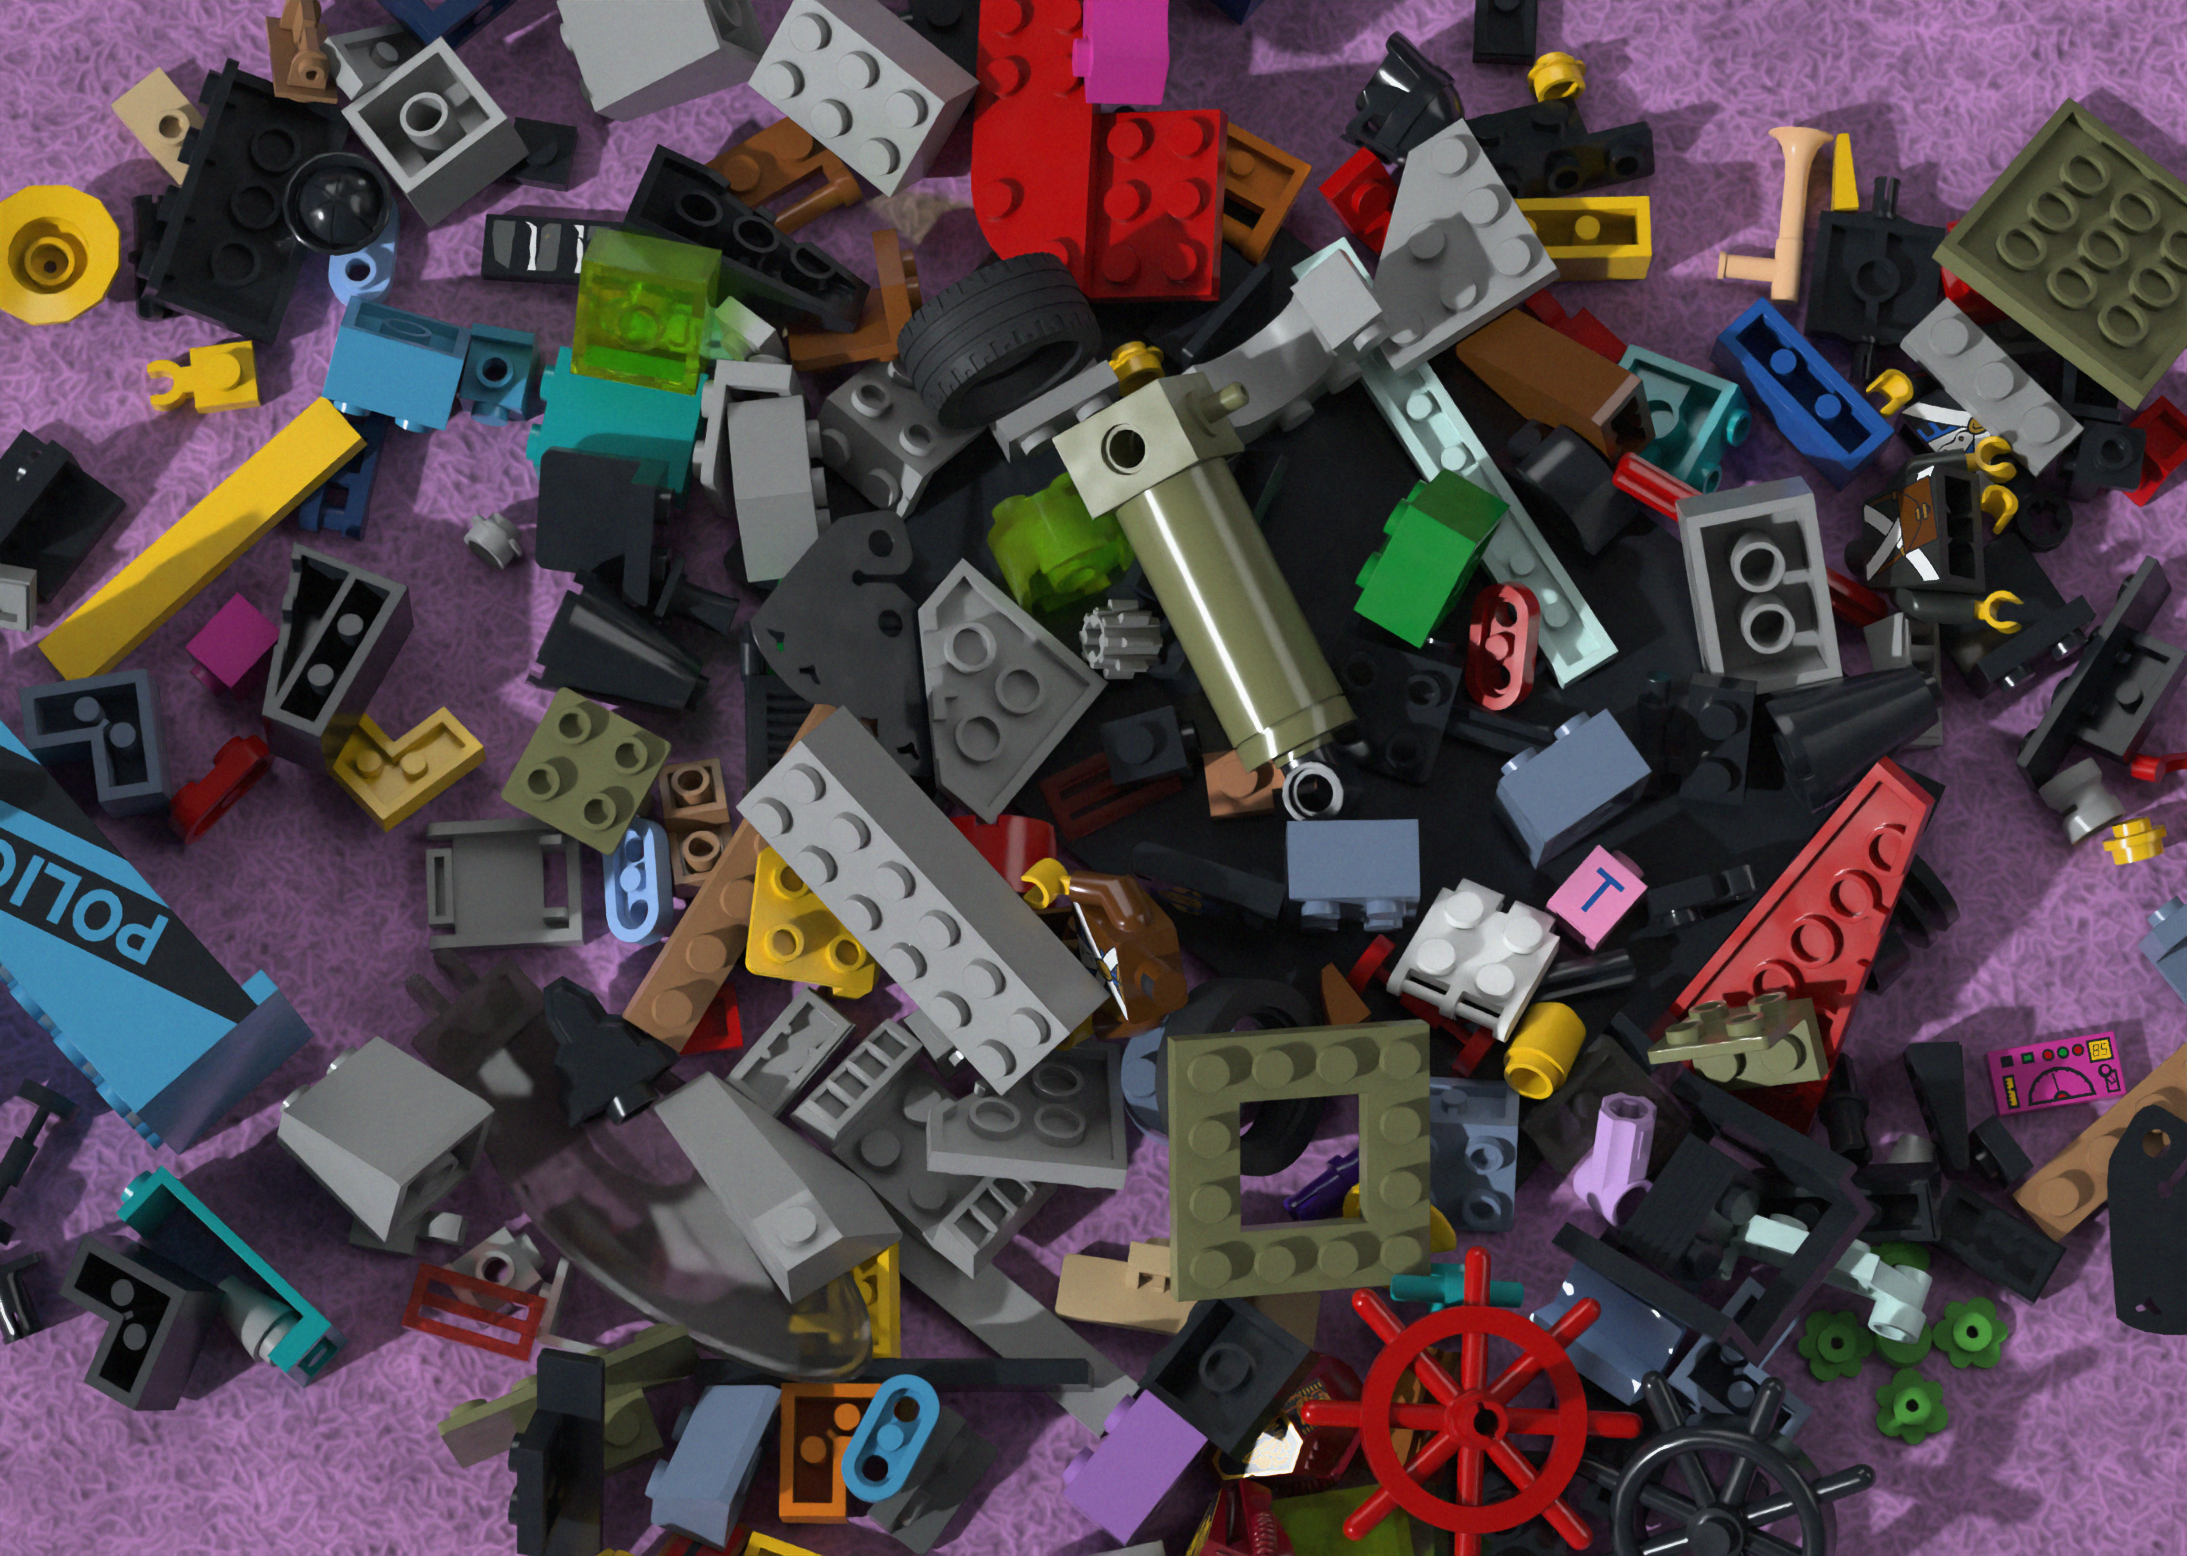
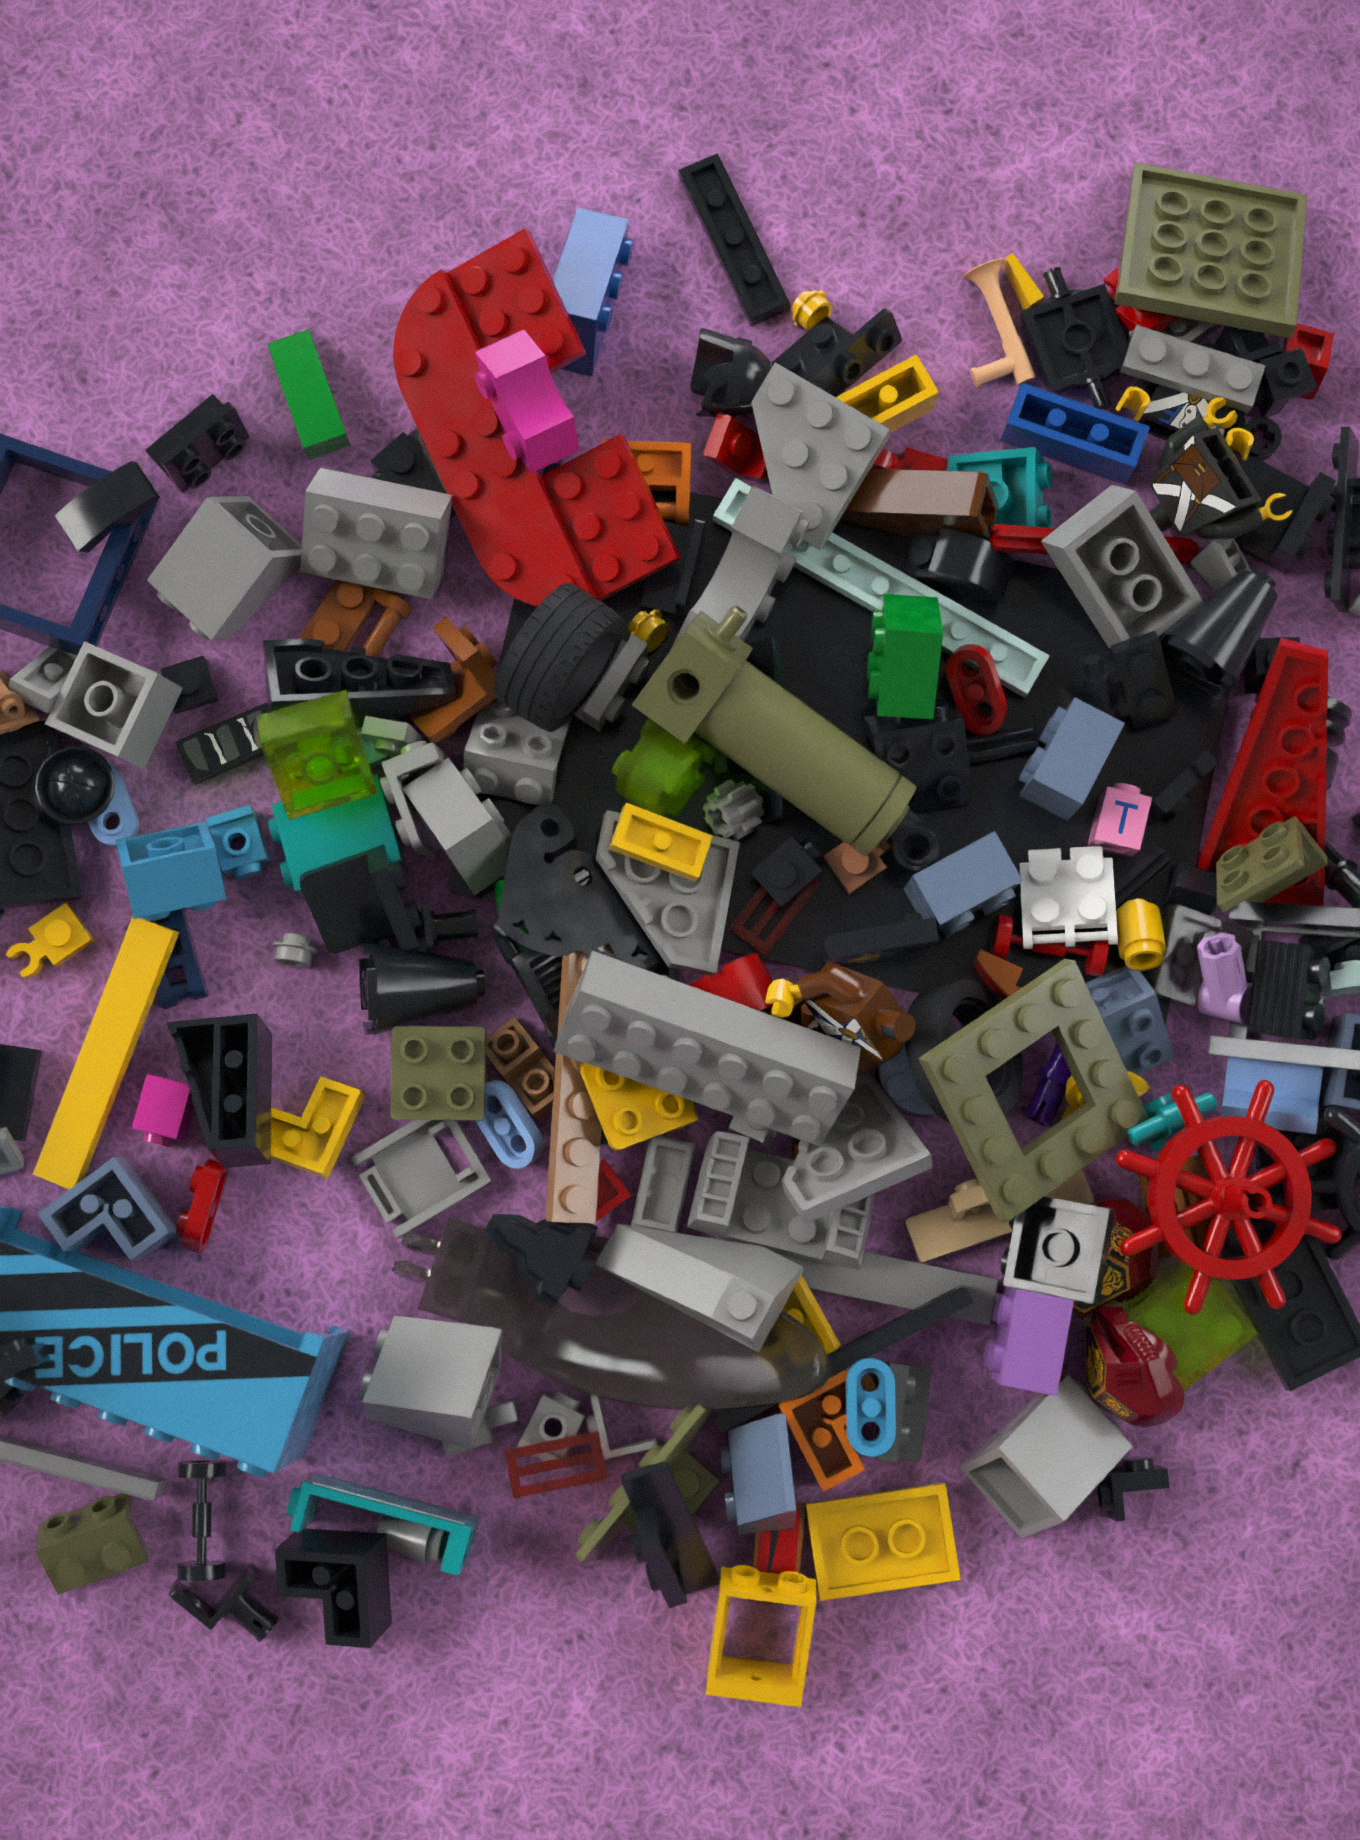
camera: 30 degrees left, 5 degrees up
(1005, 628) = (660, 842): none -> yellow plate

